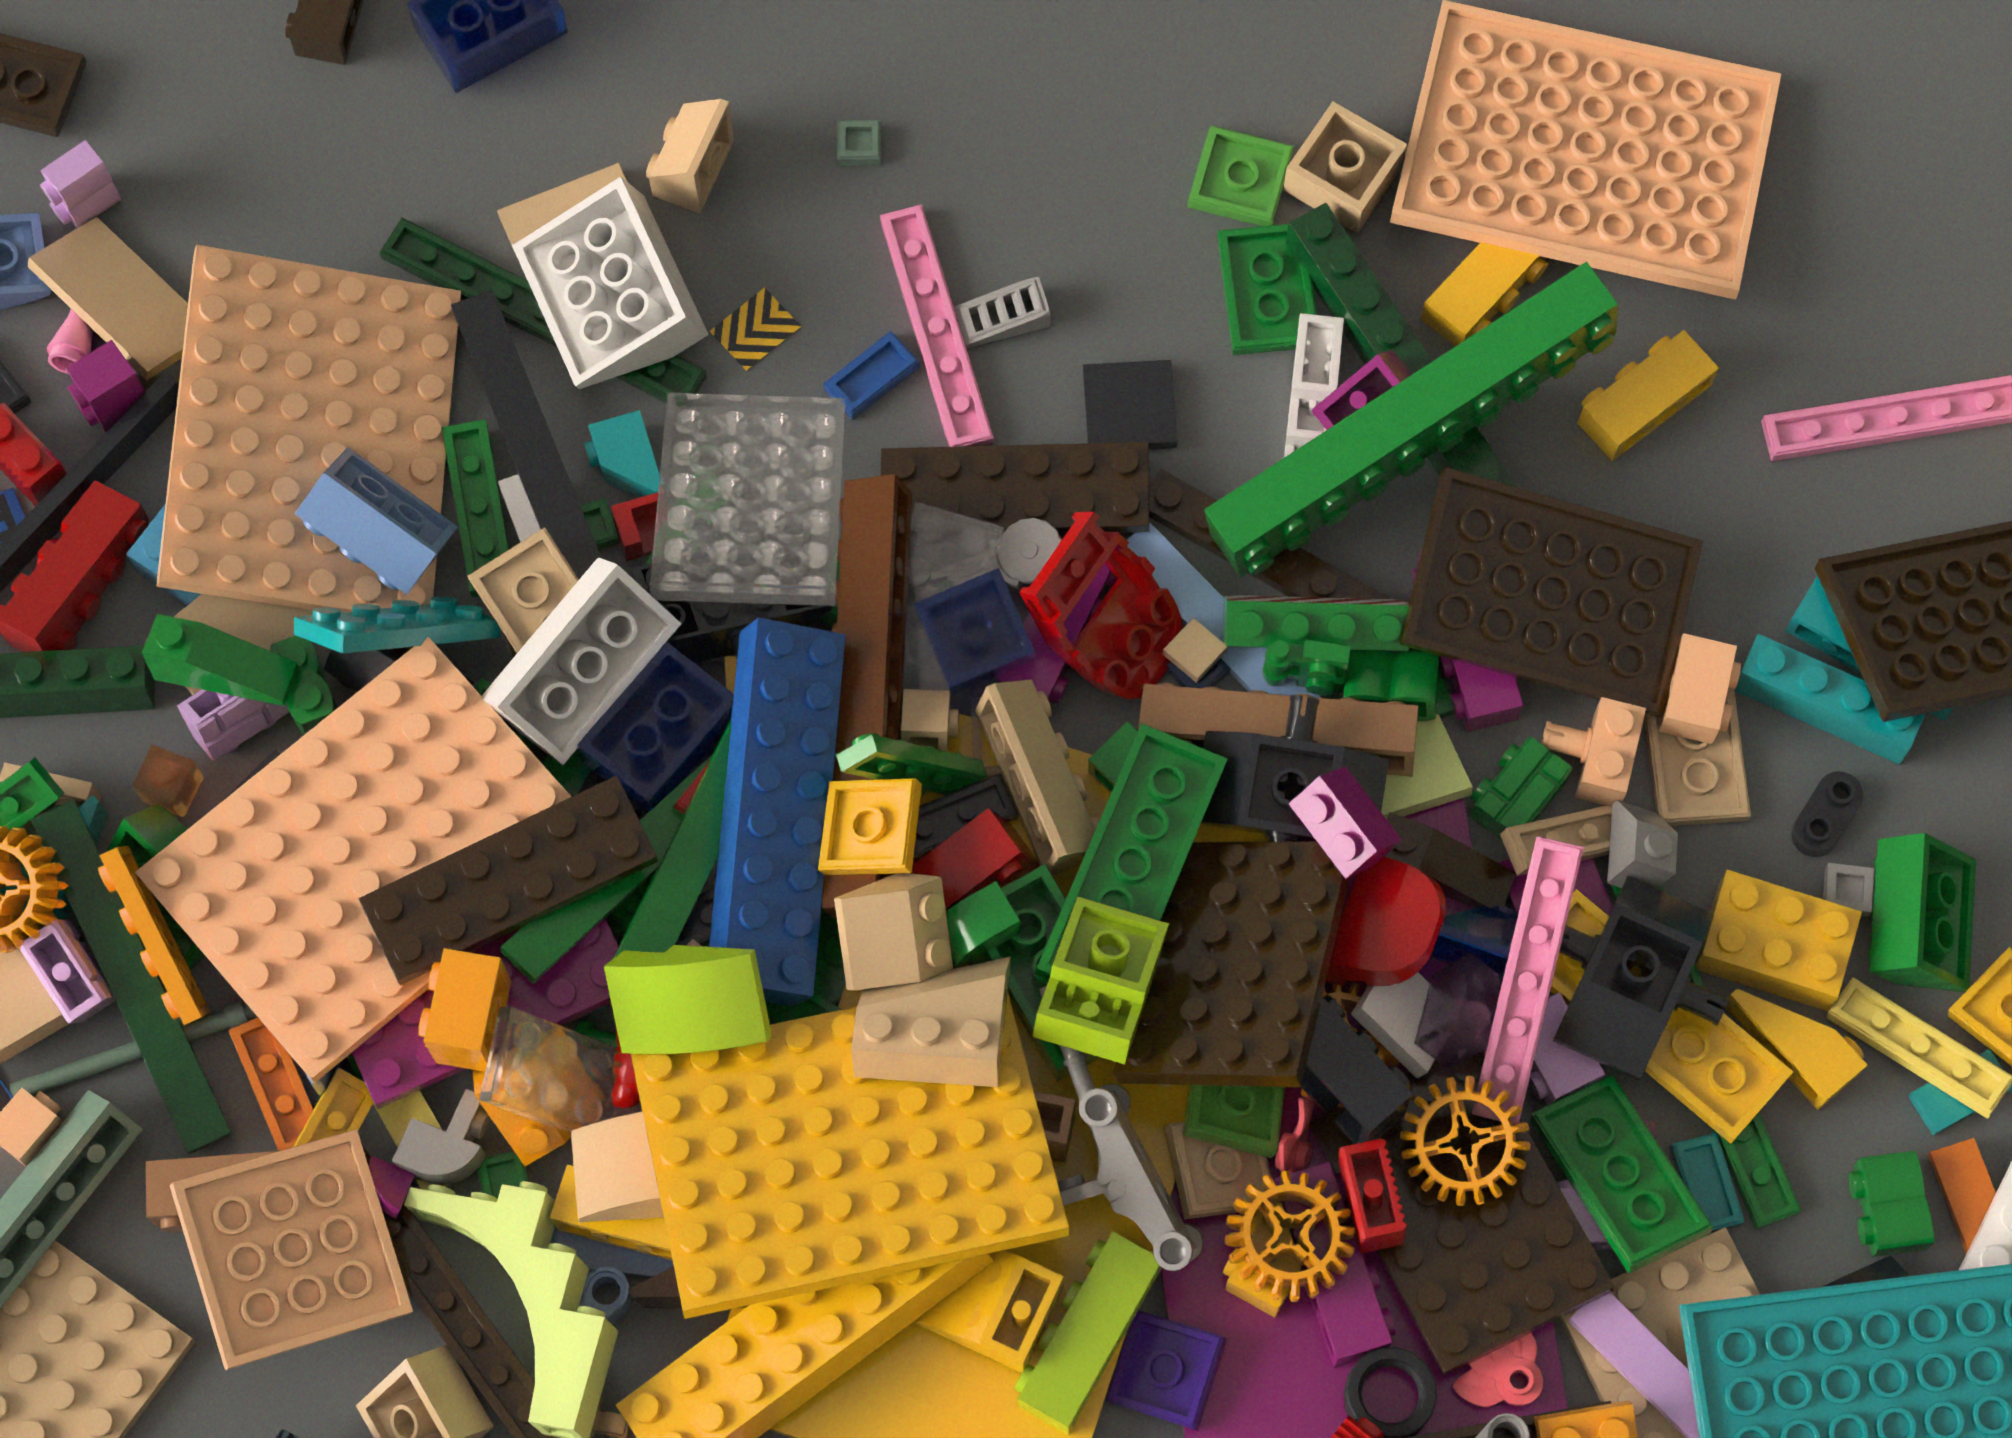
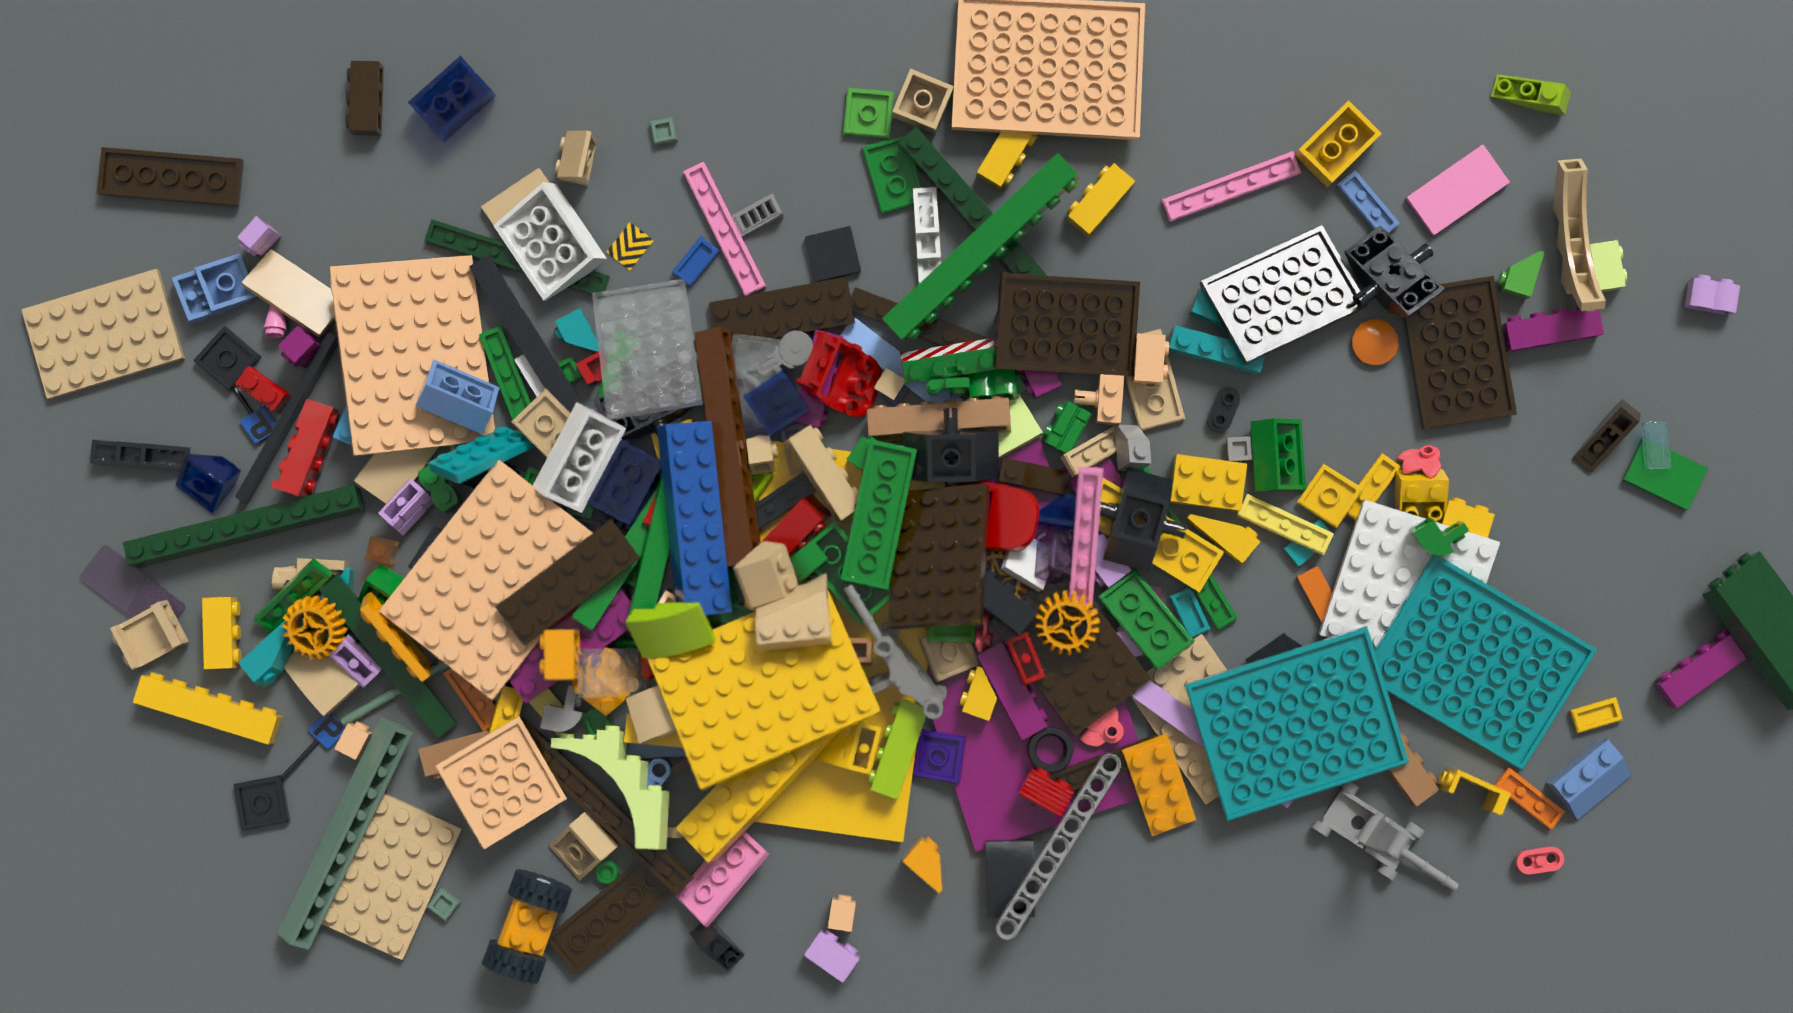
camera: 10 degrees left, 15 degrees up
(215, 661) = (394, 489): green slope -> none
(390, 1184) = (541, 738): magenta tile -> none
(870, 827) = (743, 522): yellow tile -> none
(897, 759) = (757, 484): green plate -> none
(1100, 980) = (873, 581): lime slope -> none
(1277, 1219) = (999, 673): light orange gear -> none
(1345, 822) = (982, 476): brick -> none
(1361, 388) = (954, 234): brick -> none
(1892, 1204) = (1281, 607): green brick -> none

